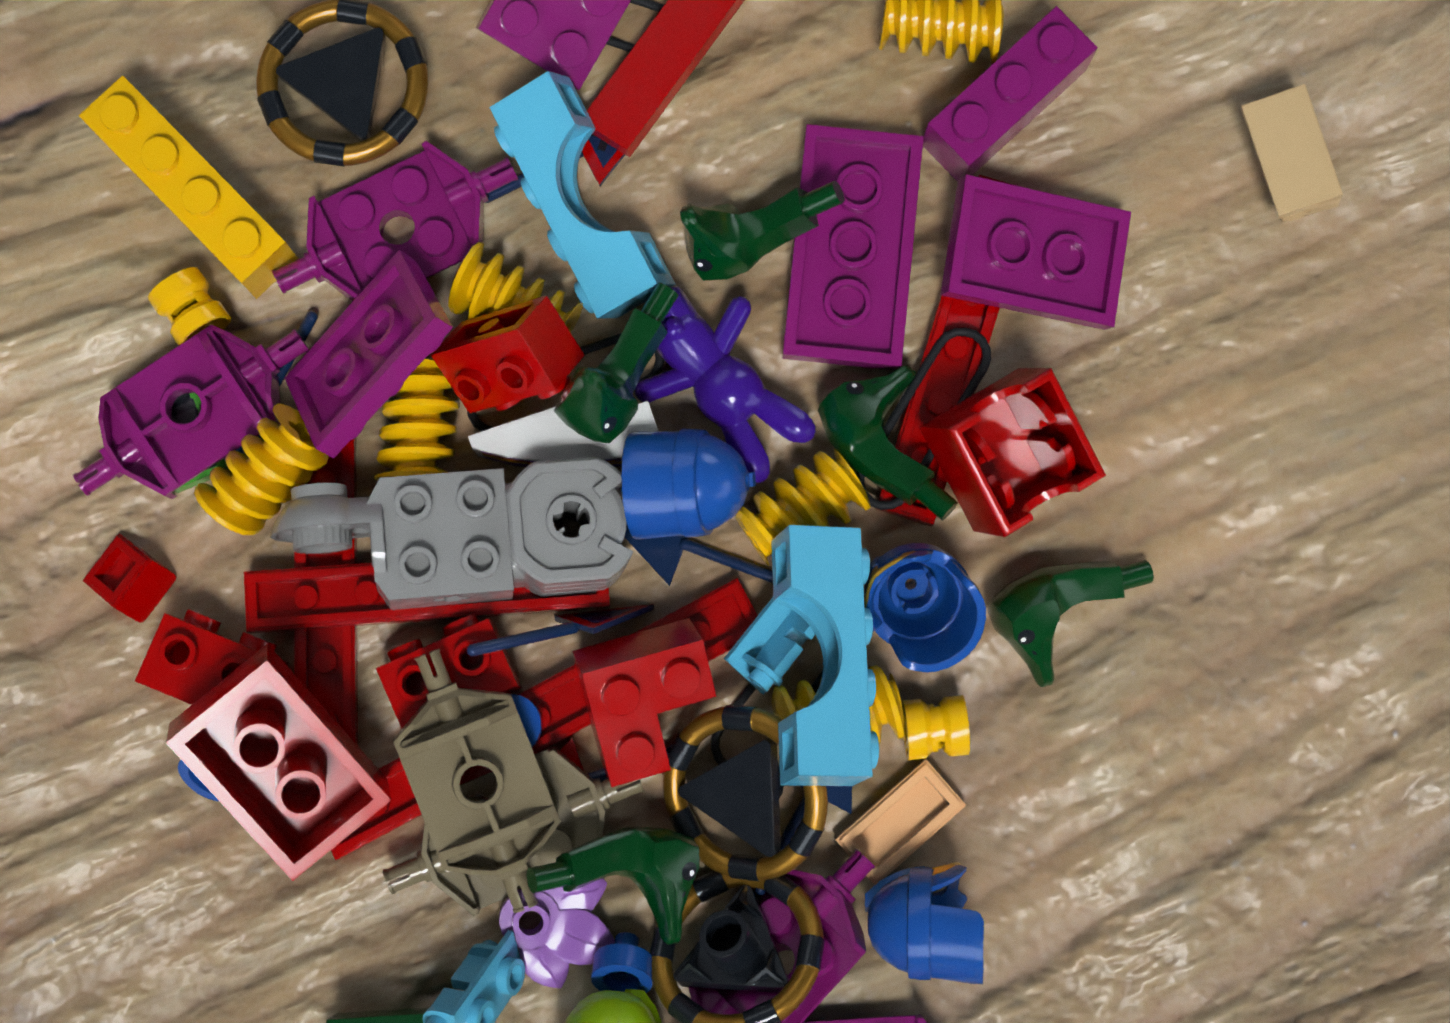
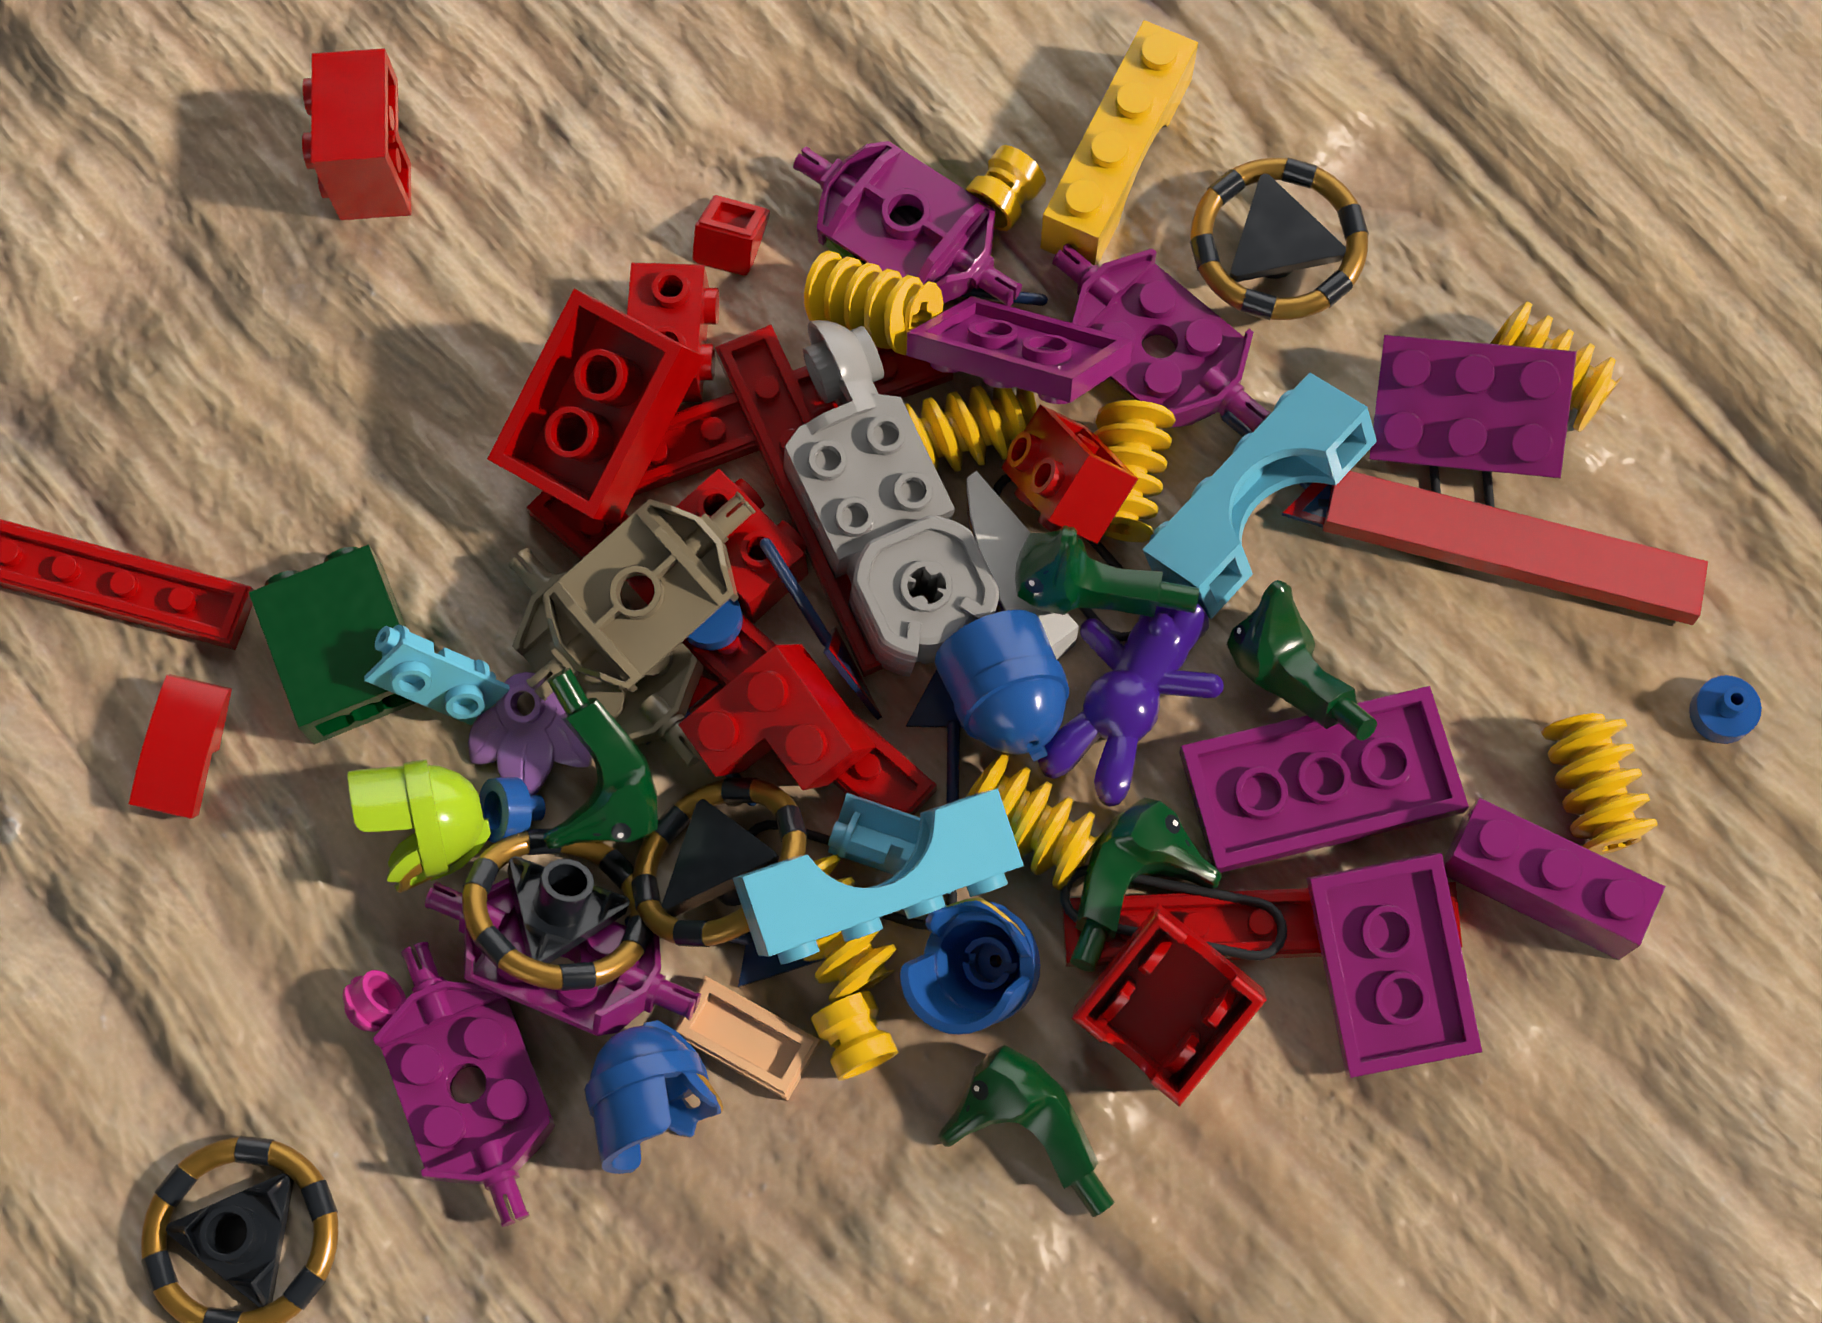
camera: 75 degrees right, 10 degrees down
(1292, 154) = (1621, 1207): tan hinge -> none

